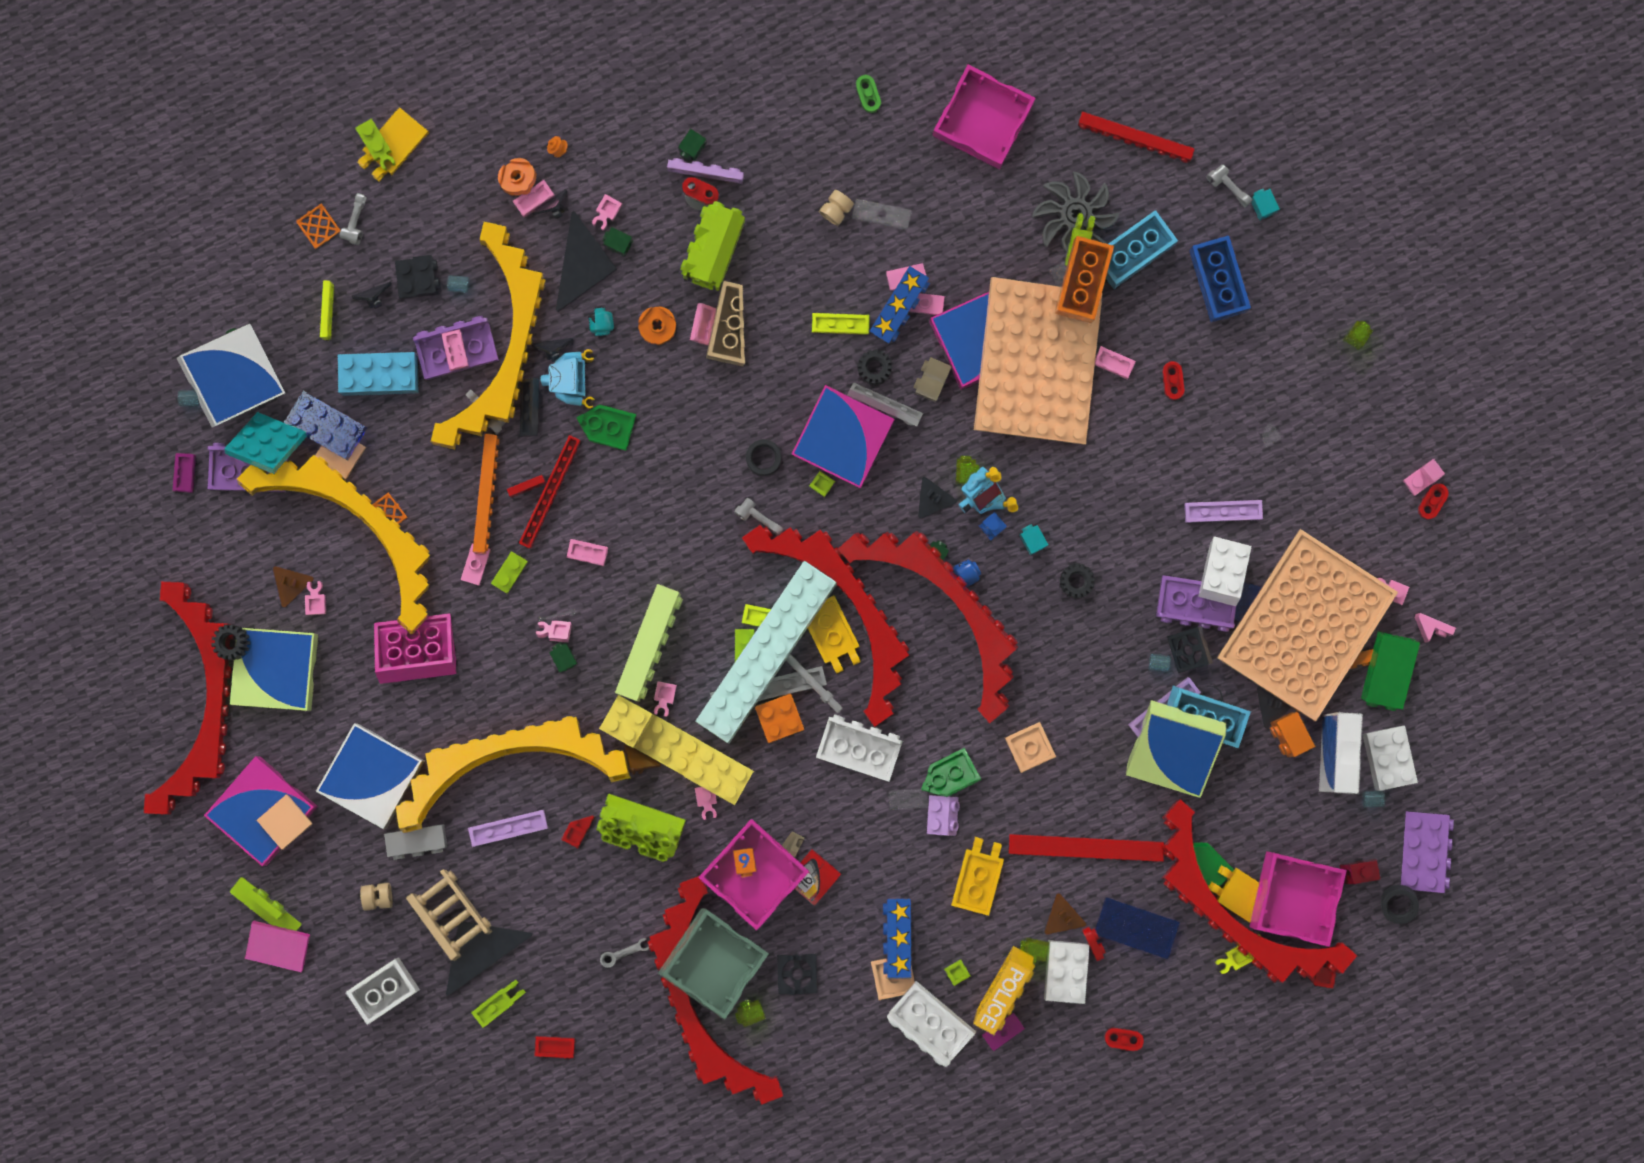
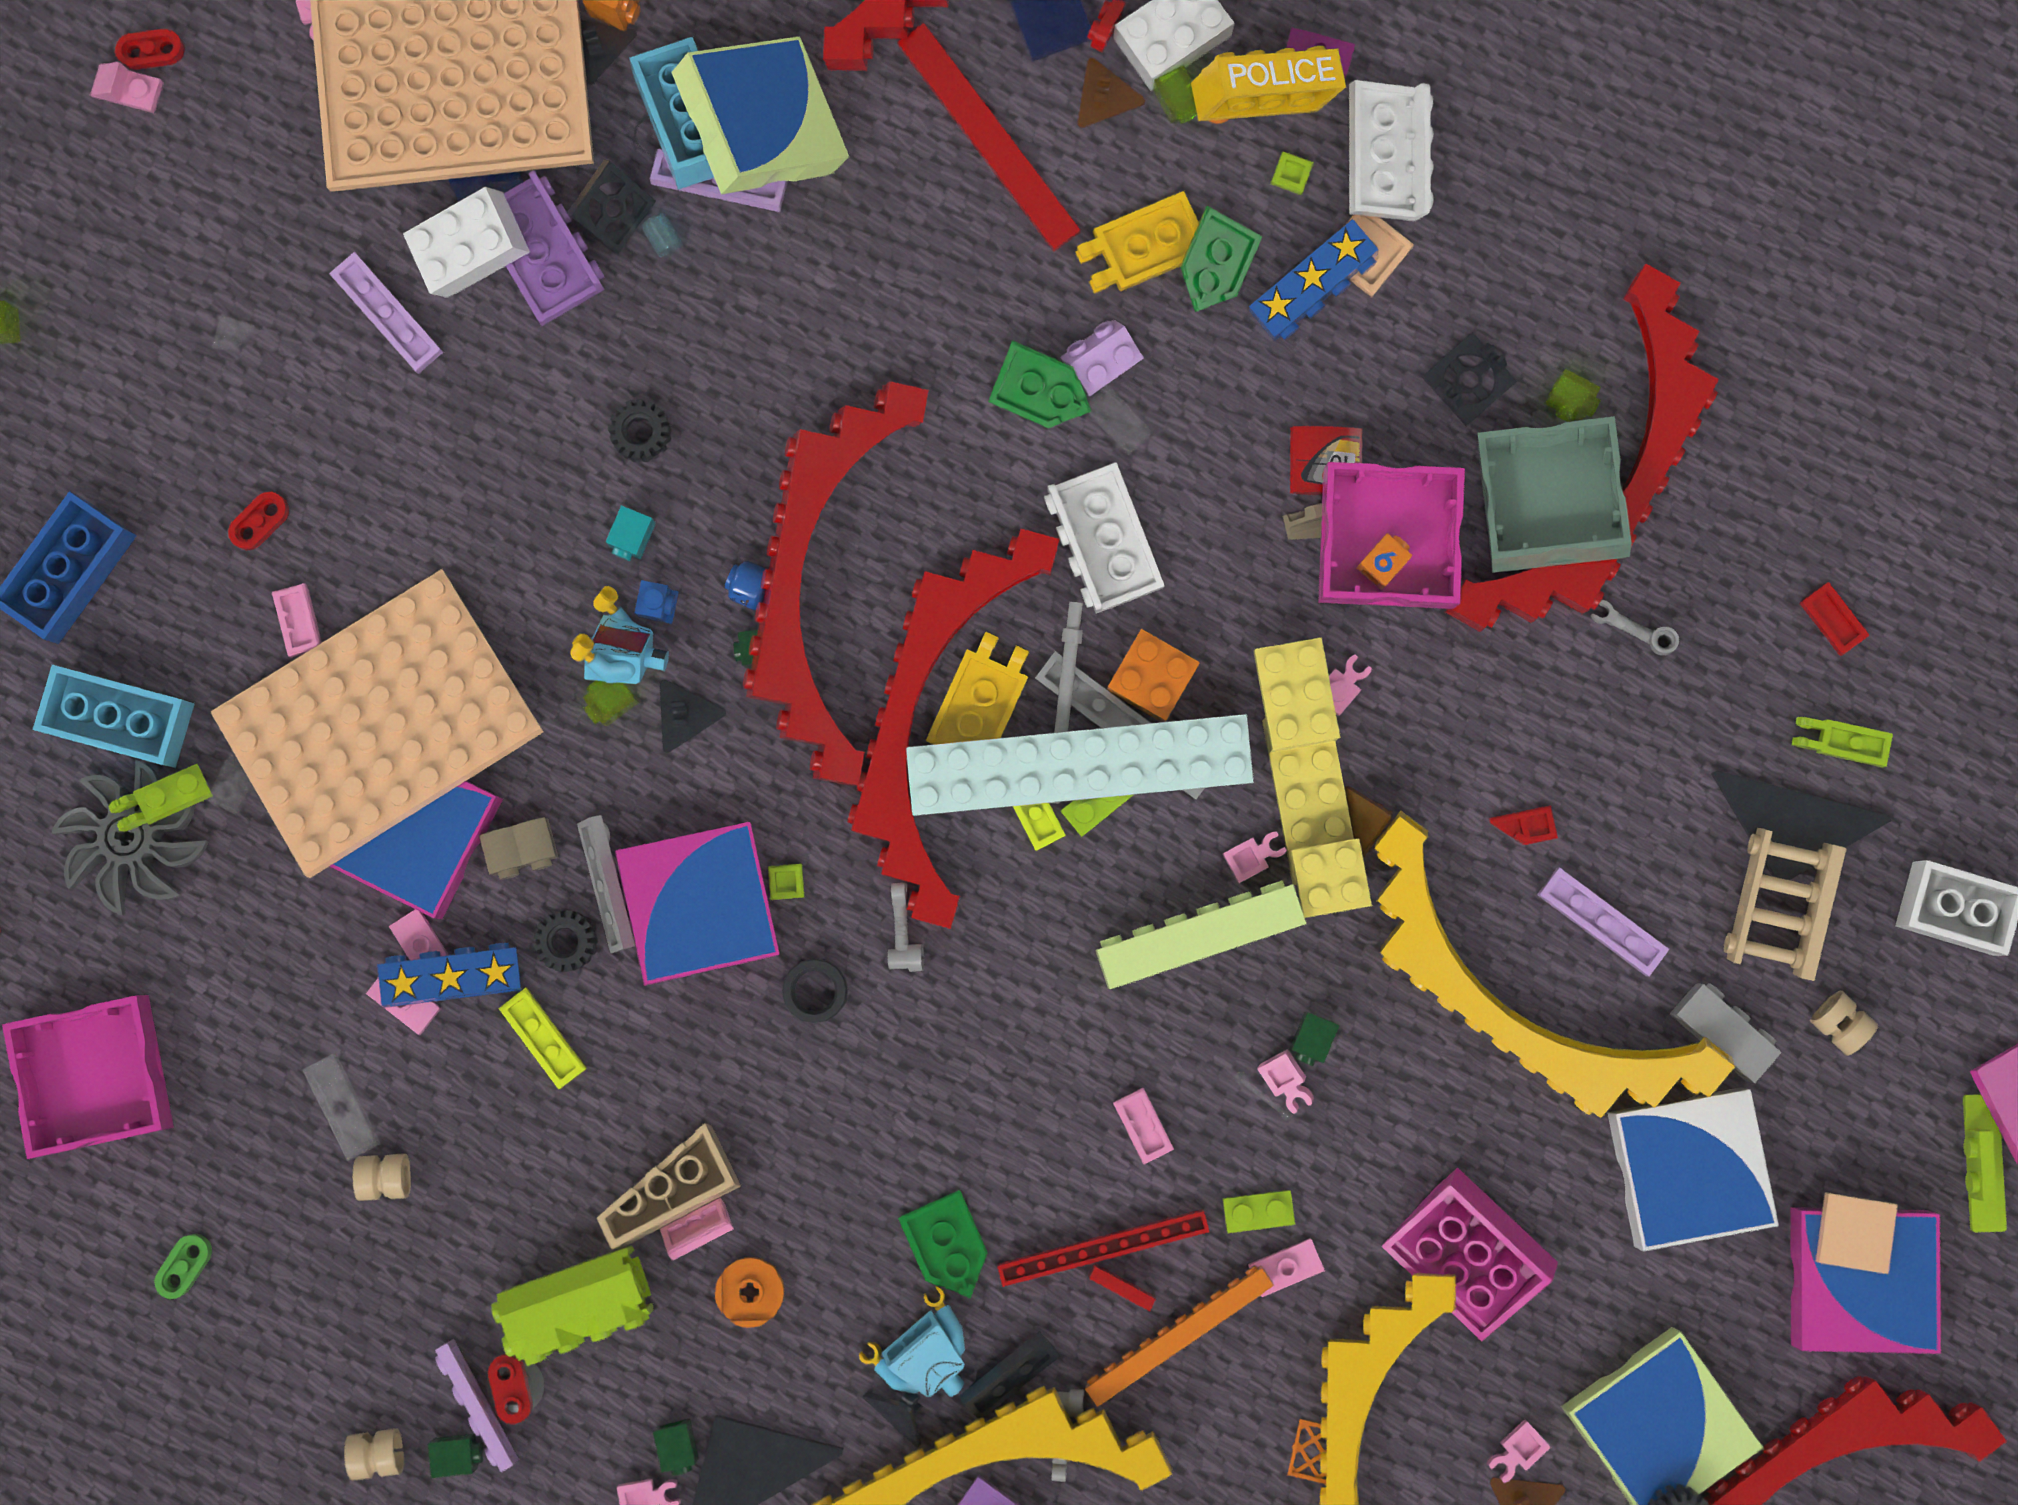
camera: 125 degrees left, 0 degrees up
(601, 322) = (808, 1375): teal head -> none
(632, 823) = (1458, 756): lime brick -> none
(720, 112) = (373, 1454): none -> tan wheel
(944, 904) = (1217, 259): none -> green tile
(1030, 747) = (915, 315): light nougat tile -> none
(1084, 279) = (207, 745): orange brick -> none

